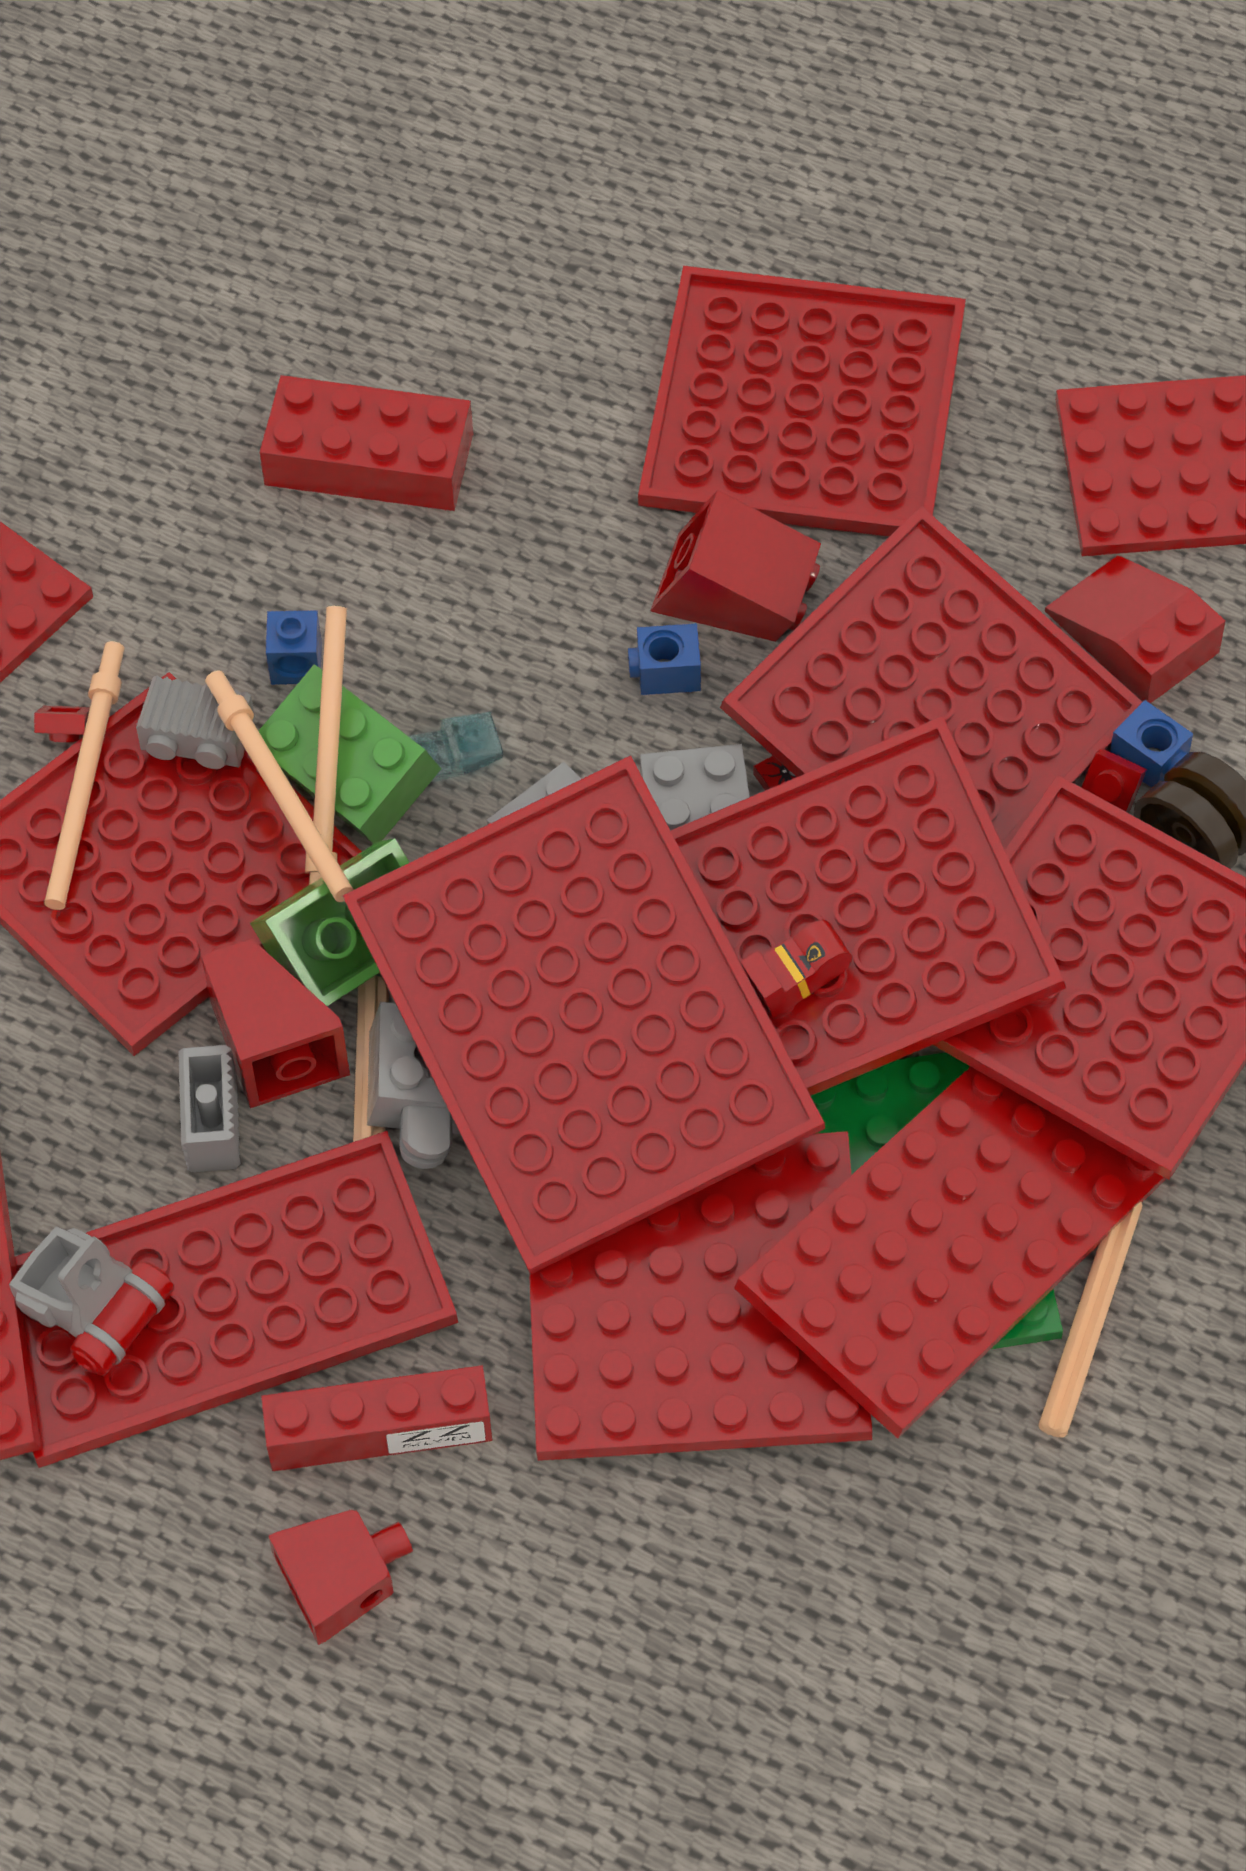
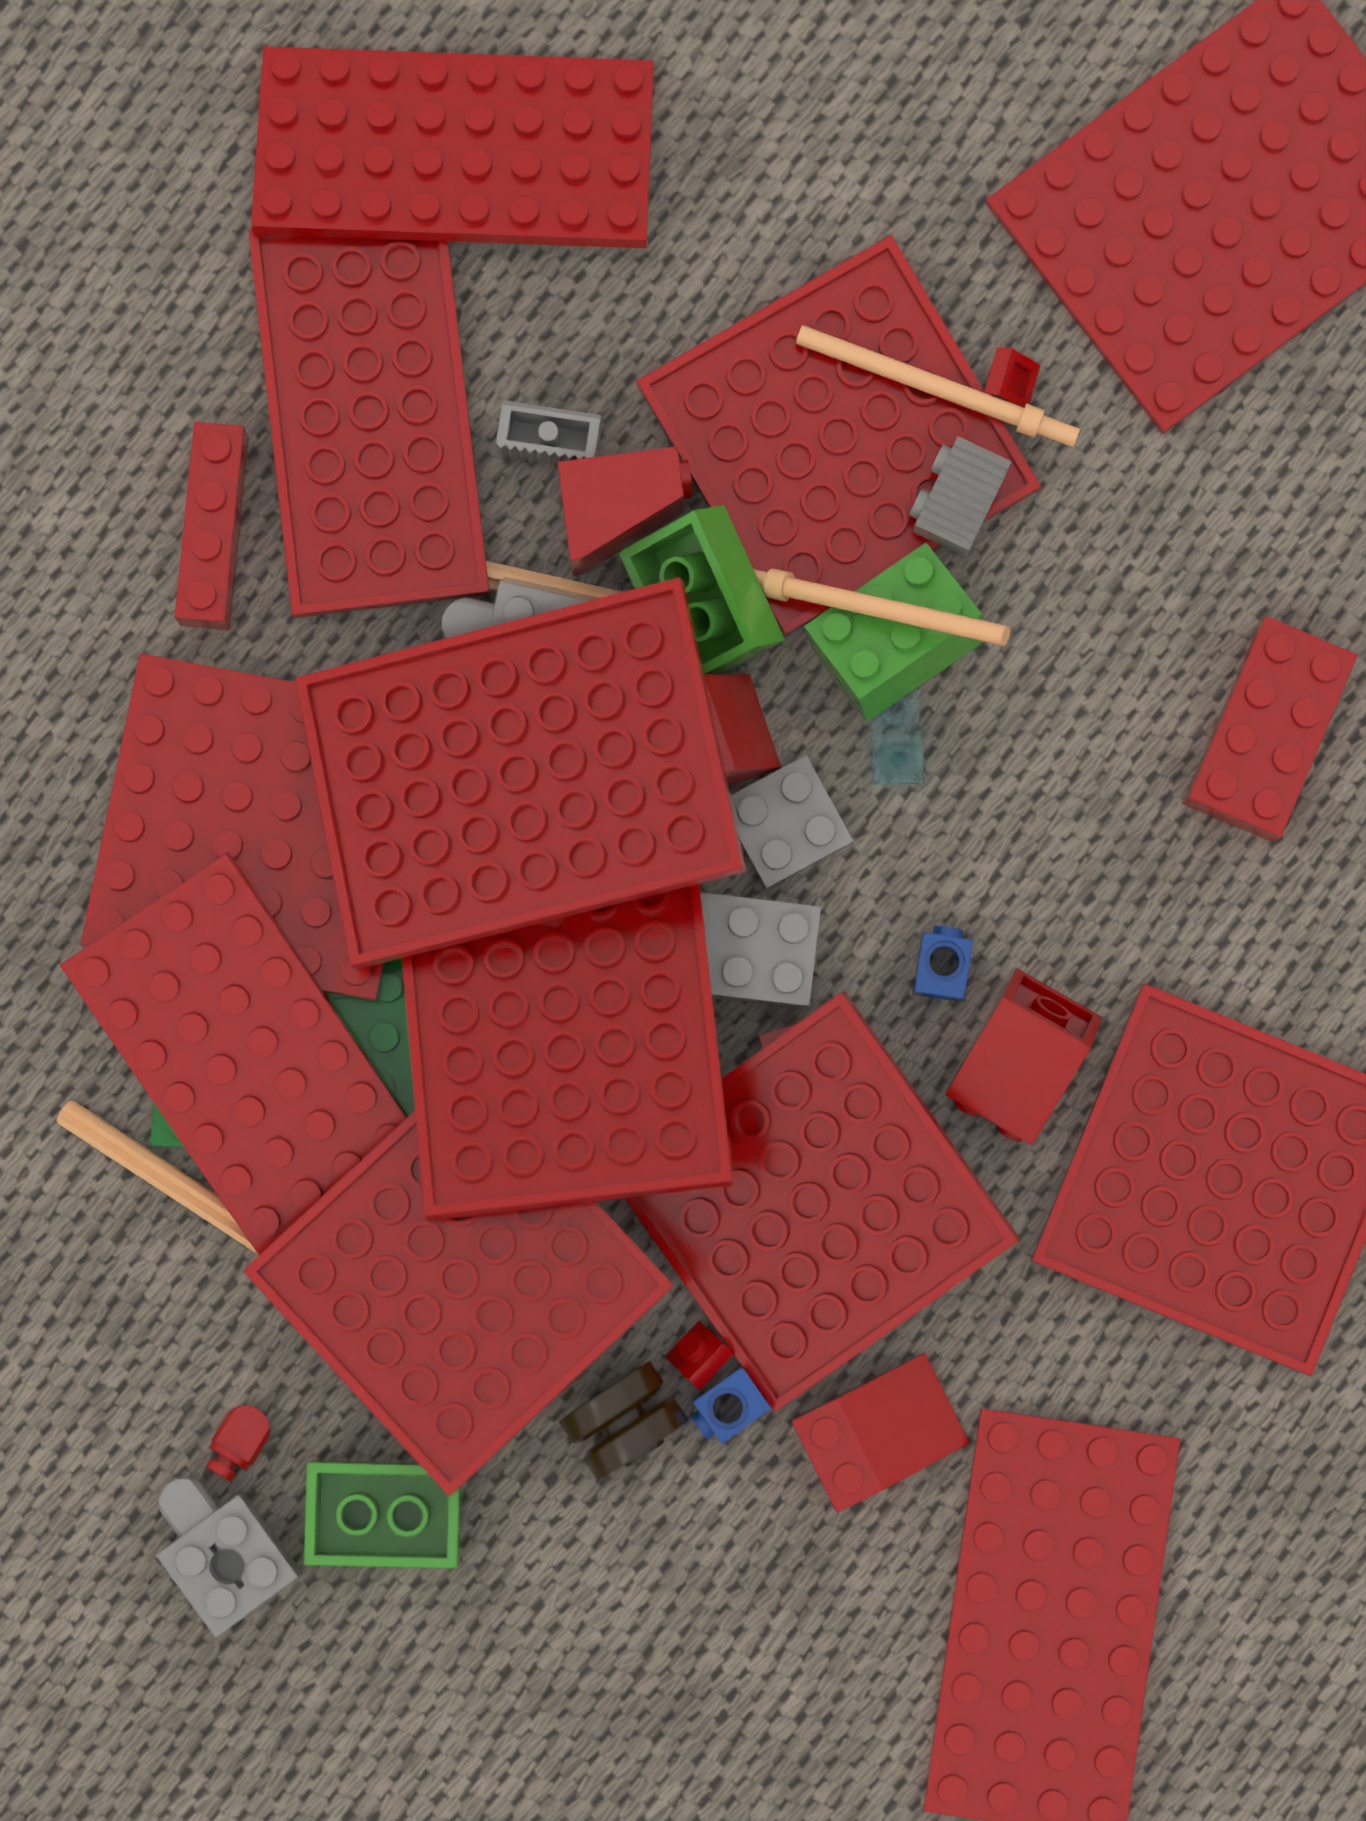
camera: 100 degrees right, 25 degrees up
(90, 1295) = (377, 292): light grey piece -> none
(238, 717) = (936, 529): light nougat bar -> none
(292, 645) = (1040, 610): blue brick -> none
(337, 1568) = (84, 465): red torso -> none
(797, 966) = (510, 976): red leg -> none

